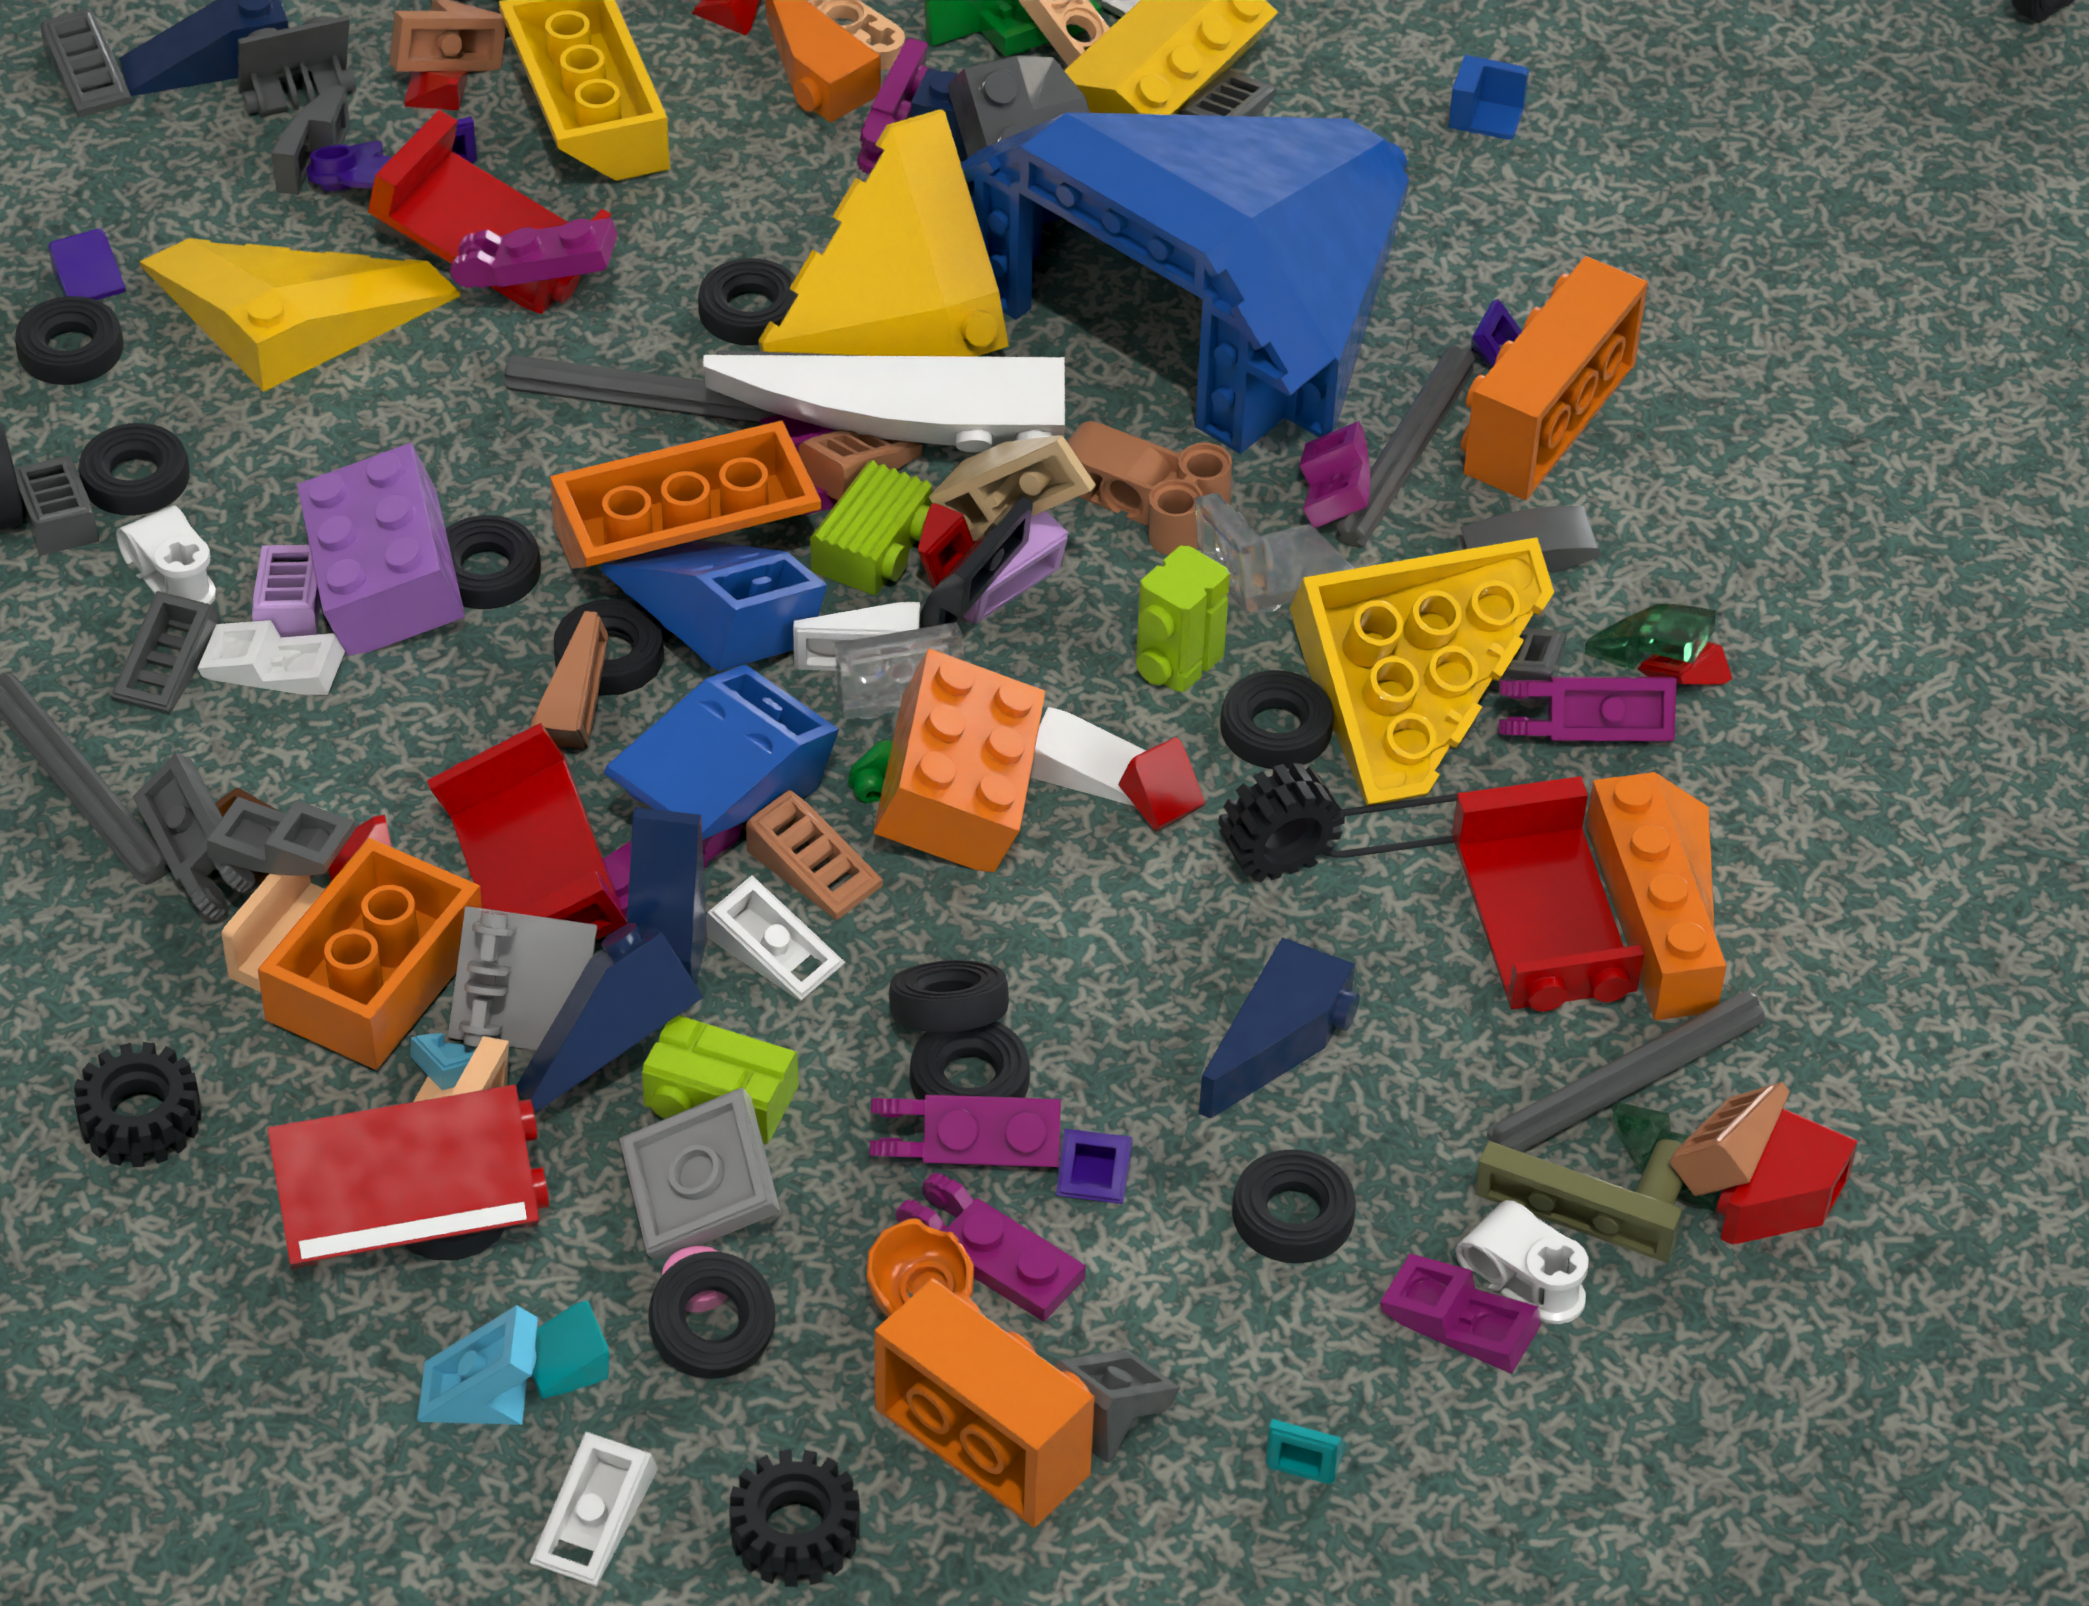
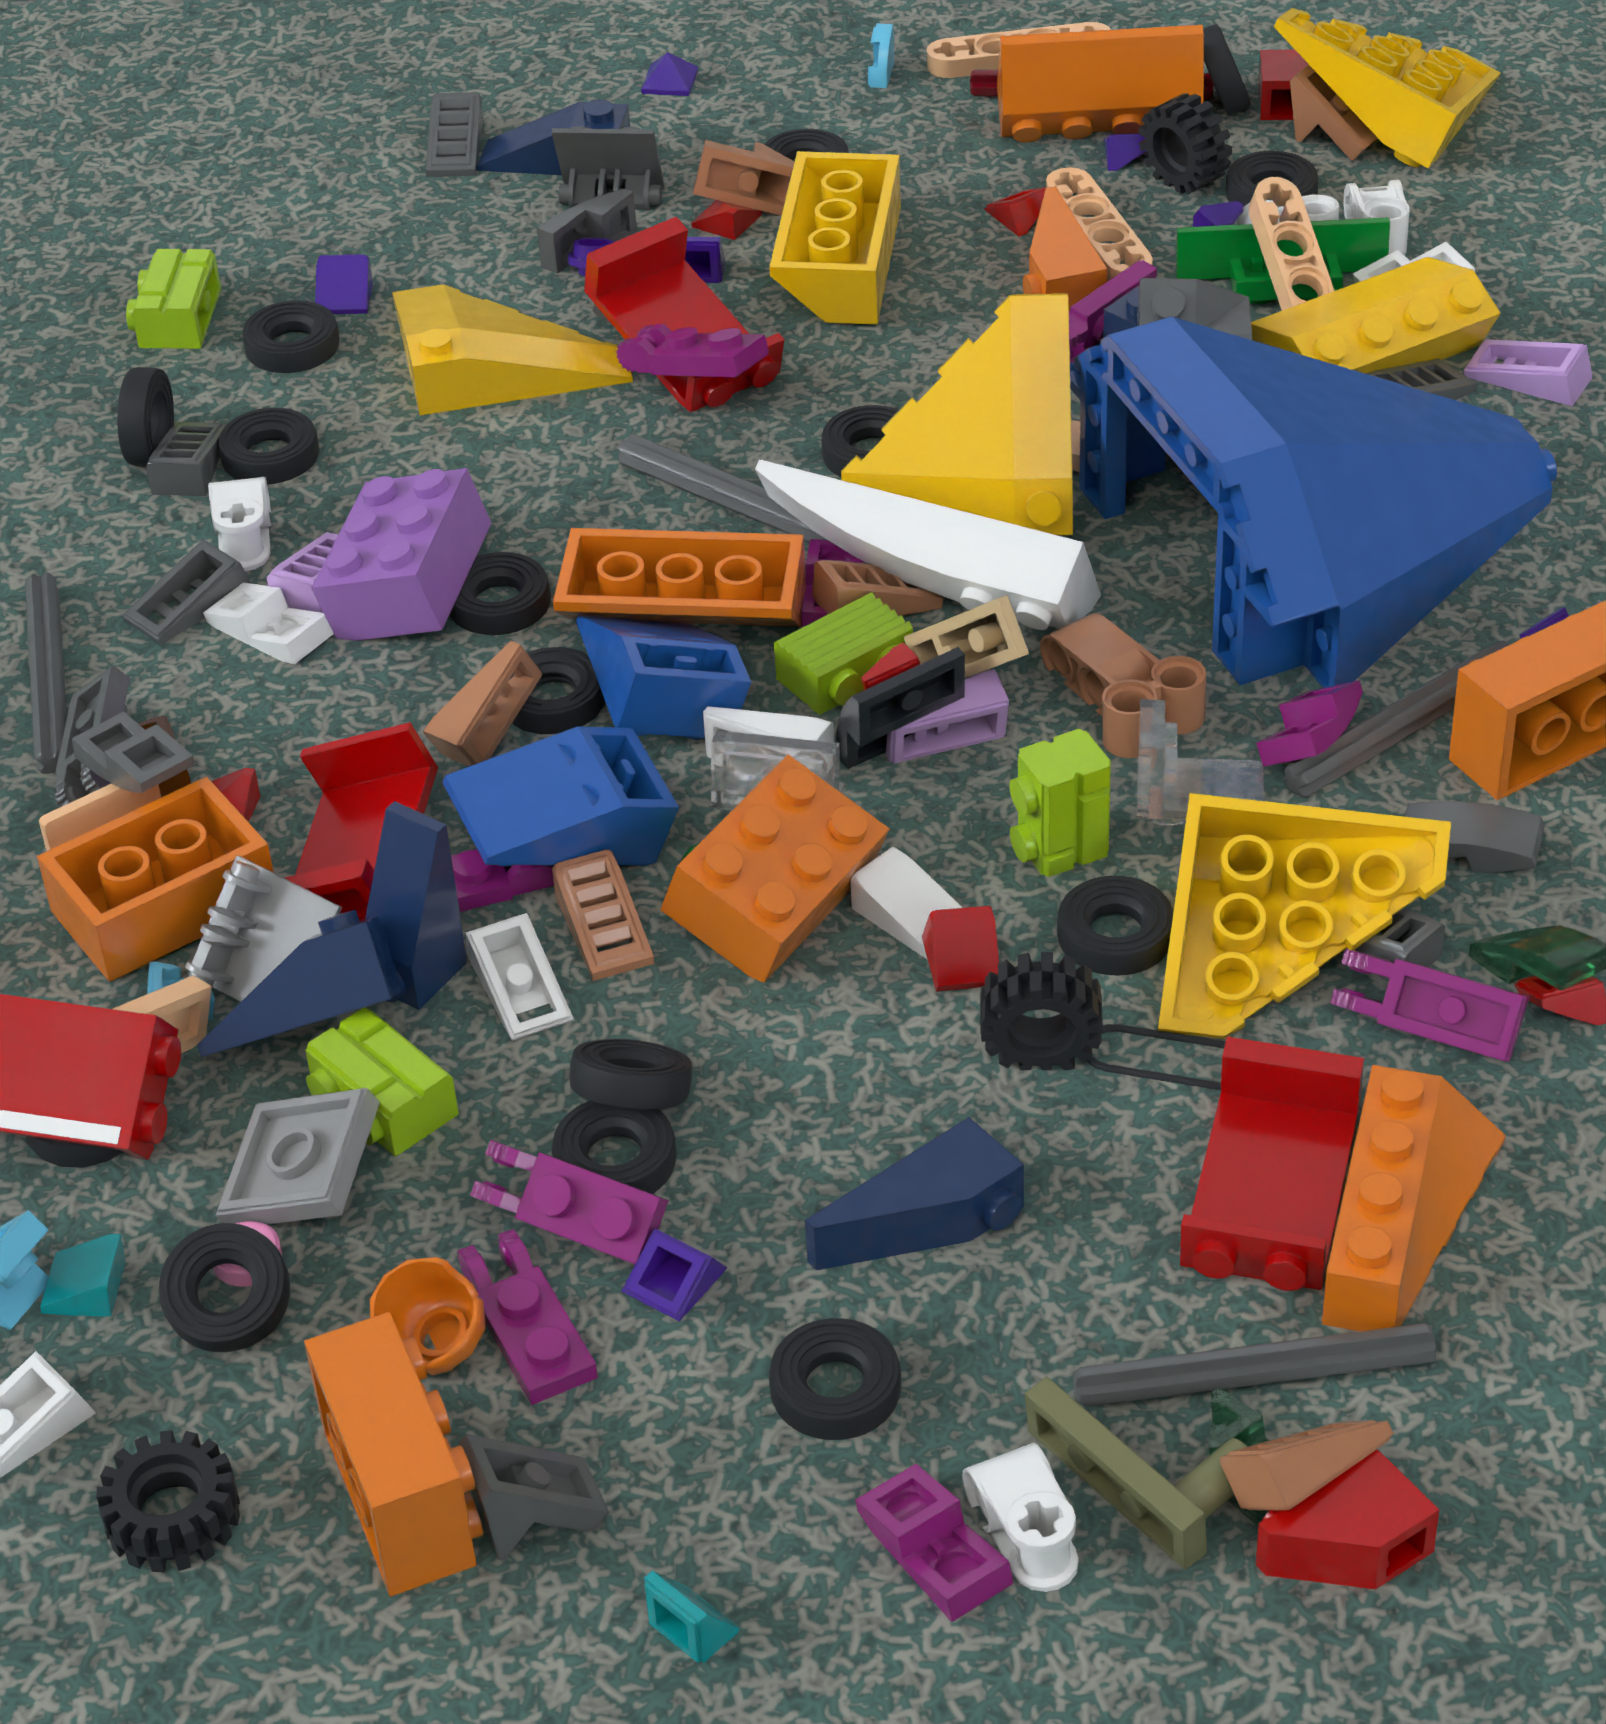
camera: 30 degrees right, 5 degrees down
(1345, 59) = (1545, 368): none -> lavender slope

